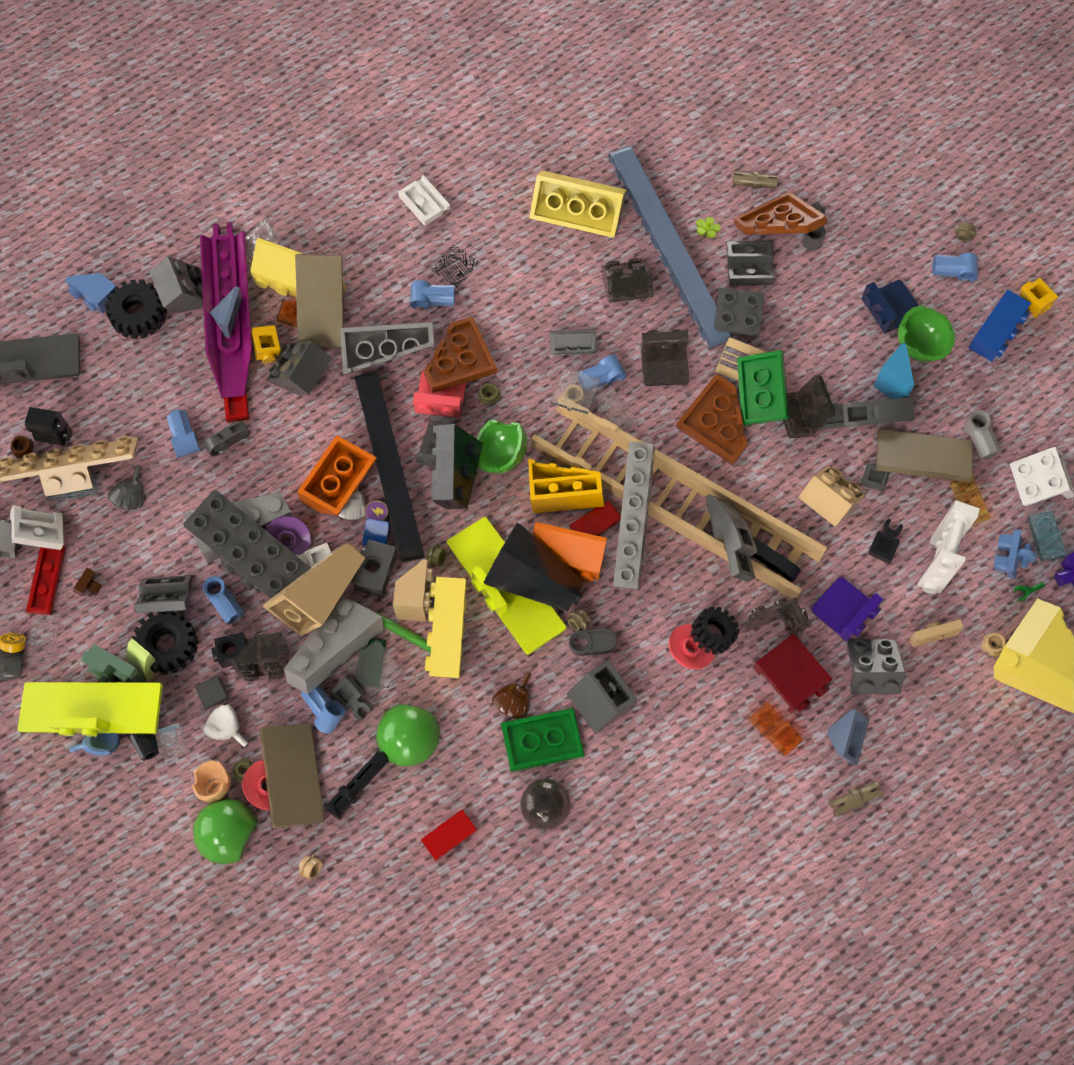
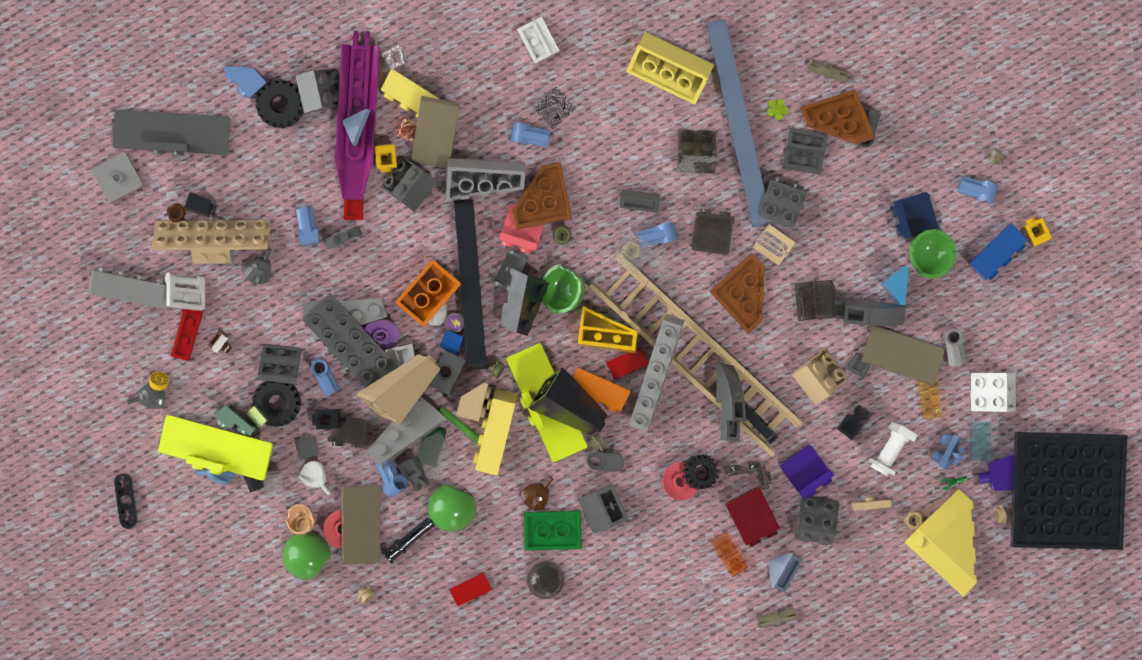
camera: 10 degrees right, 20 degrees up
(239, 766) = (326, 508): olive plate -> none
(763, 388) = (786, 275): green tile -> none

